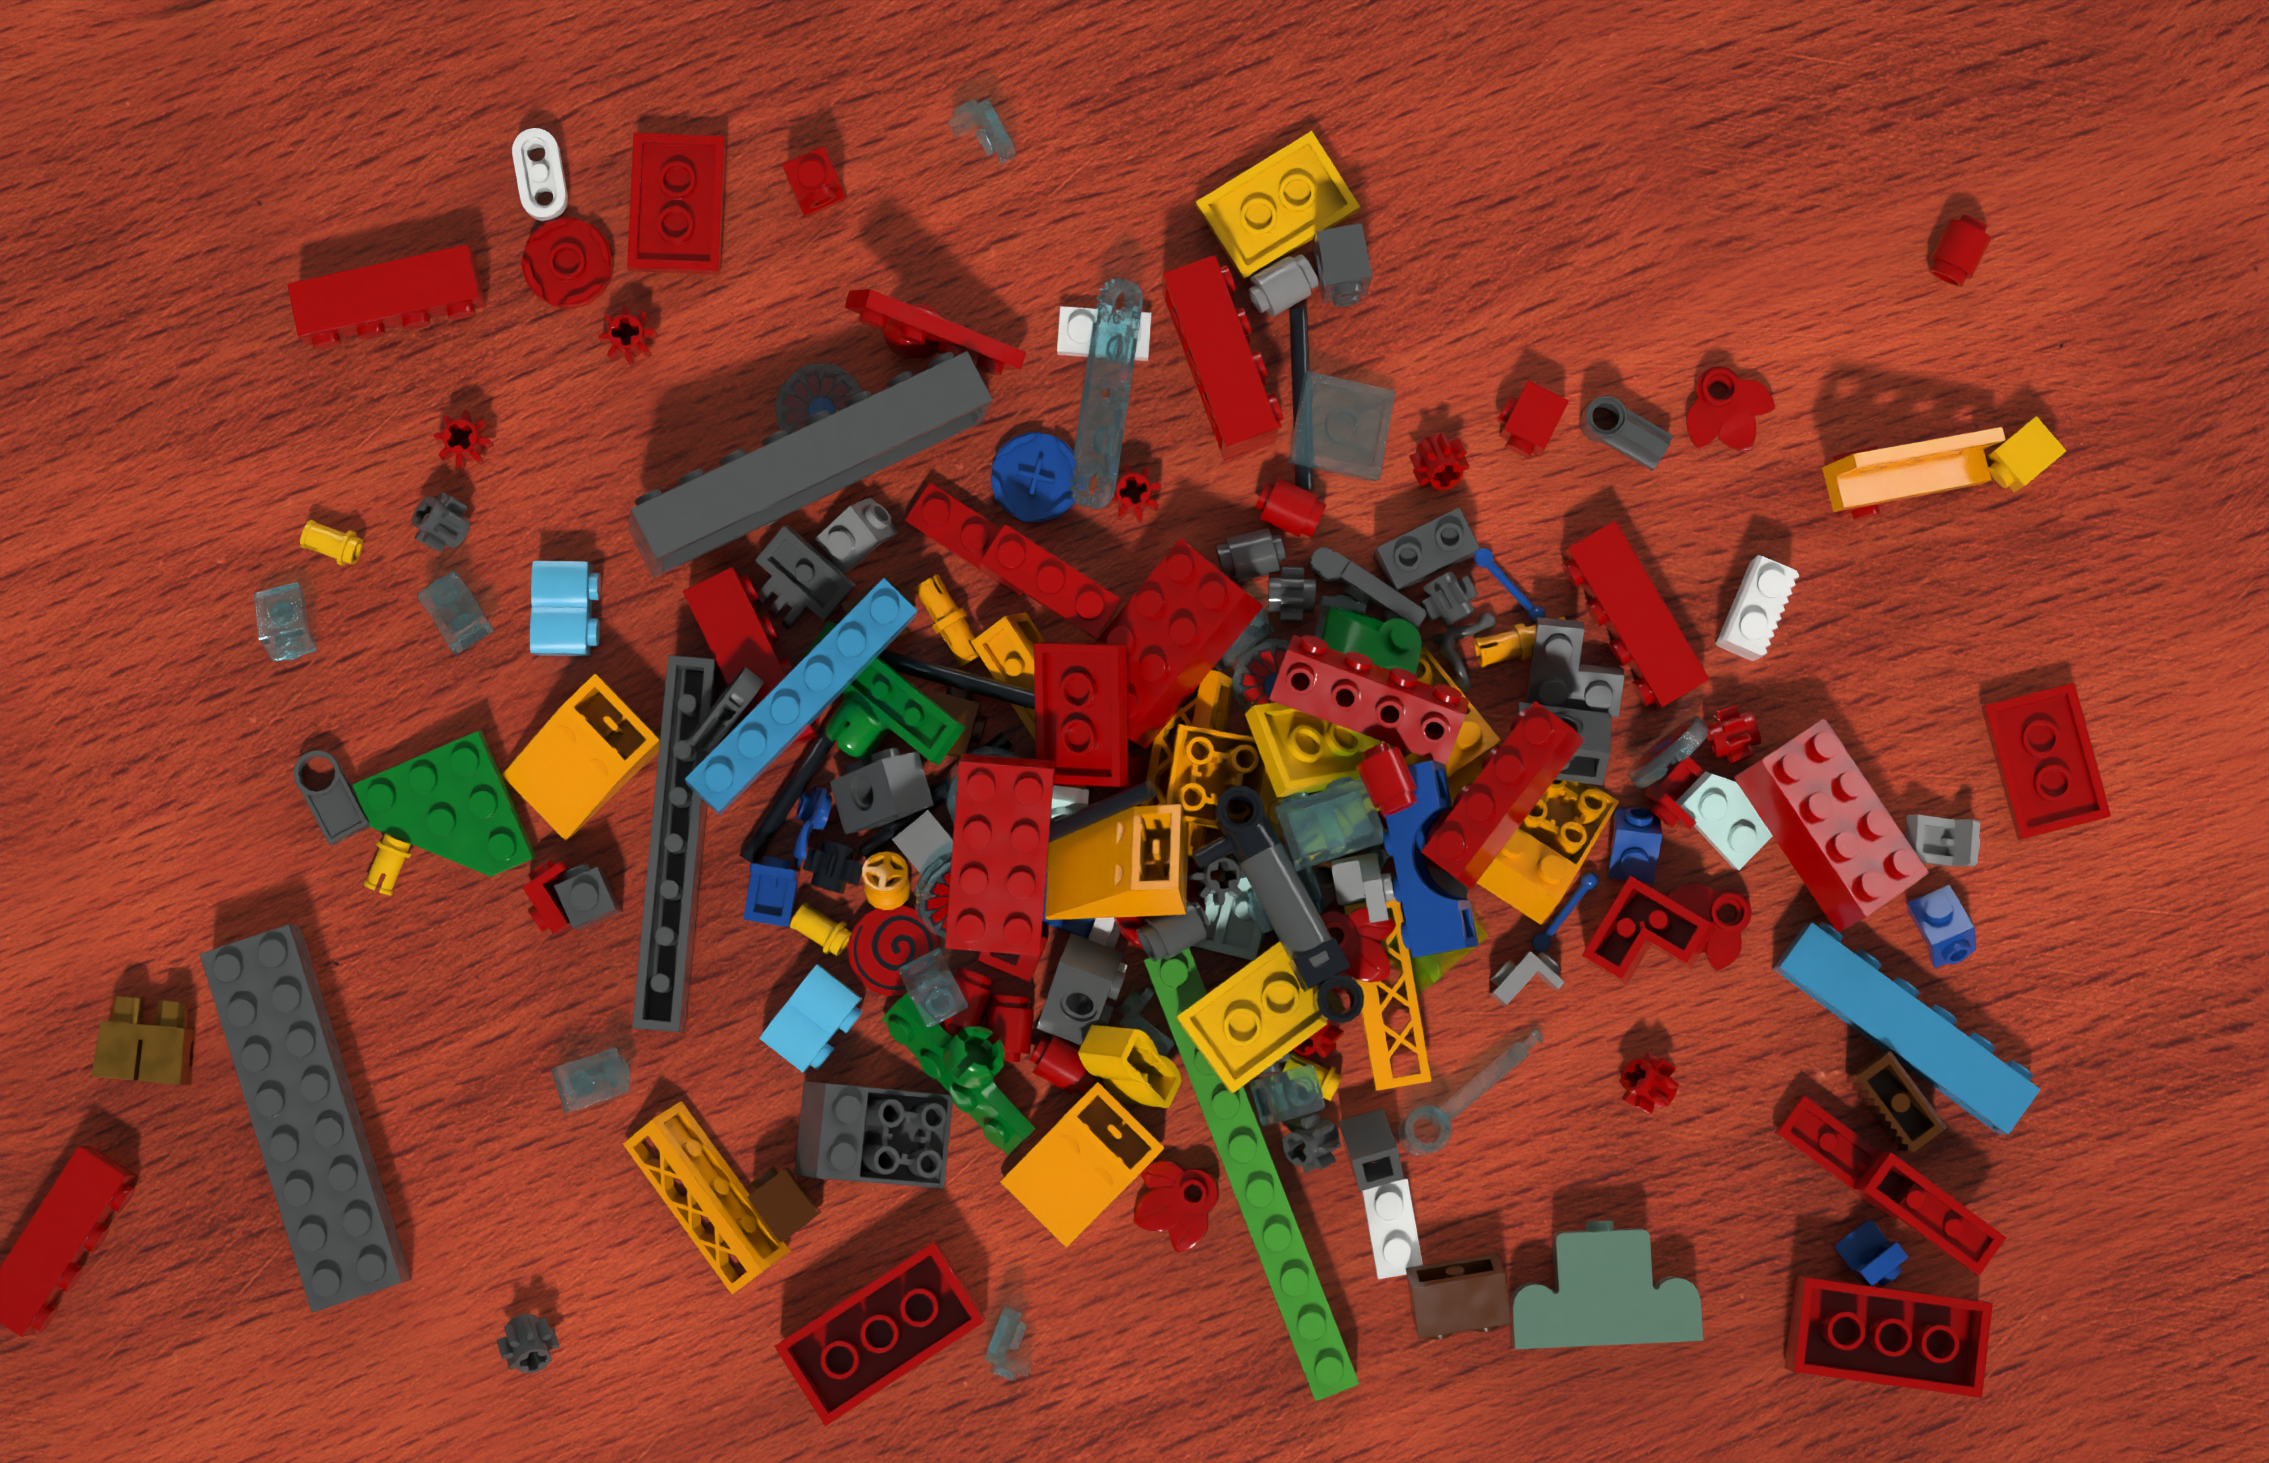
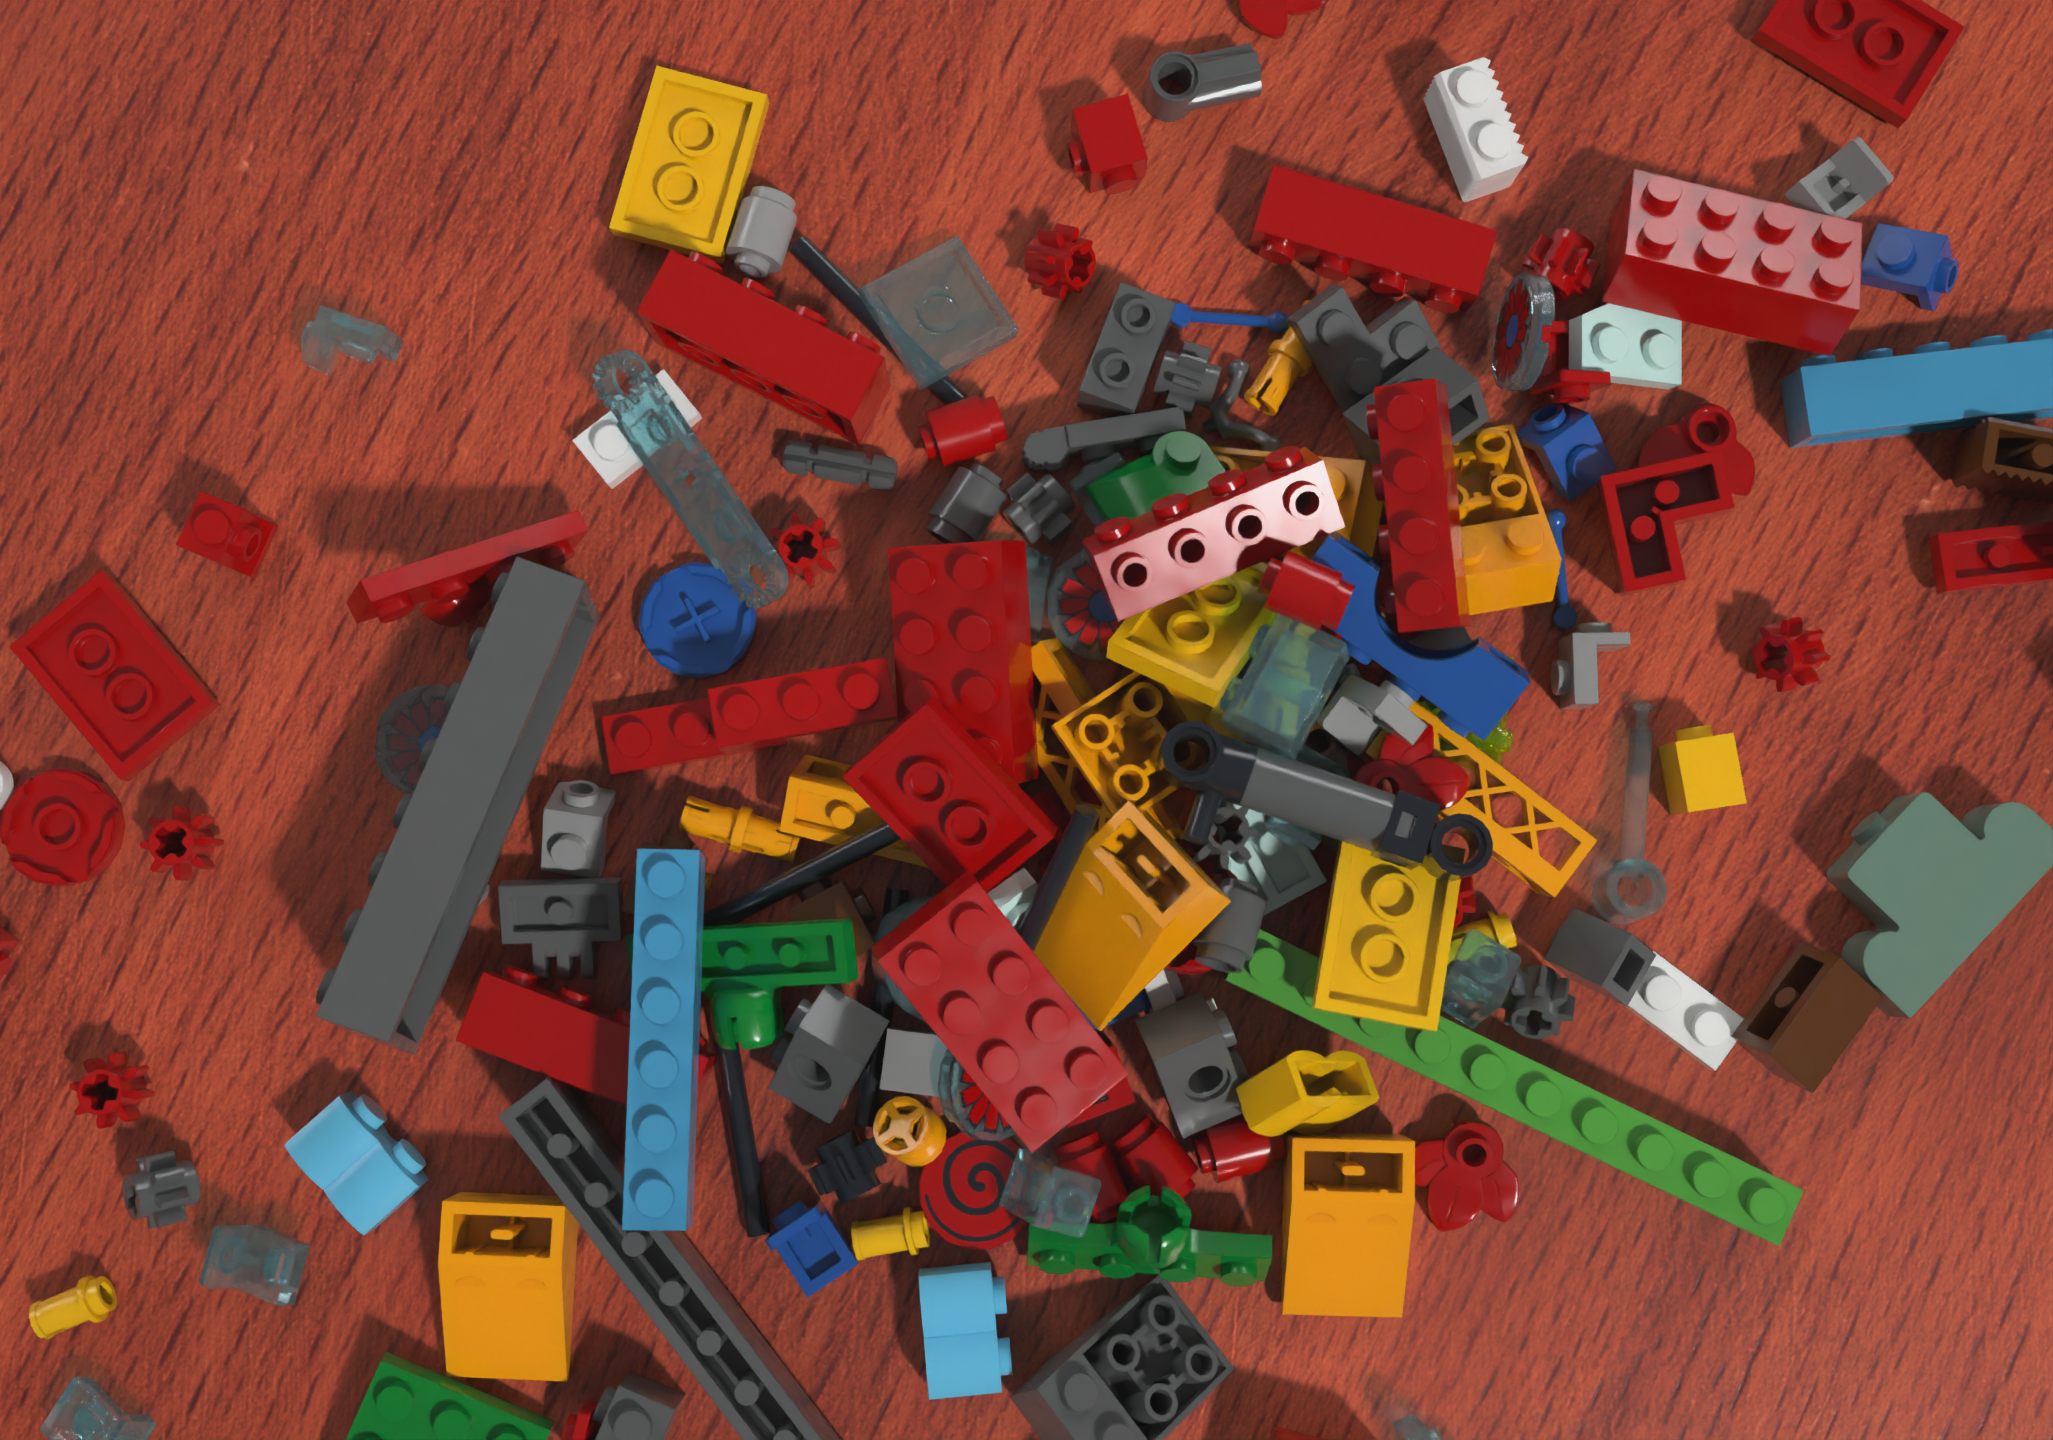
camera: 45 degrees left, 0 degrees up
(725, 711) = (603, 1120): dark grey piece -> none
(814, 813) = (781, 1131): blue plate -> none
(1131, 1009) = (1276, 1044): clear light blue bracket -> none
(1201, 463) = (840, 465): none -> dark grey axle
(1342, 265) = (800, 157): dark grey brick -> none
(1533, 1102) = (1701, 771): none -> yellow brick

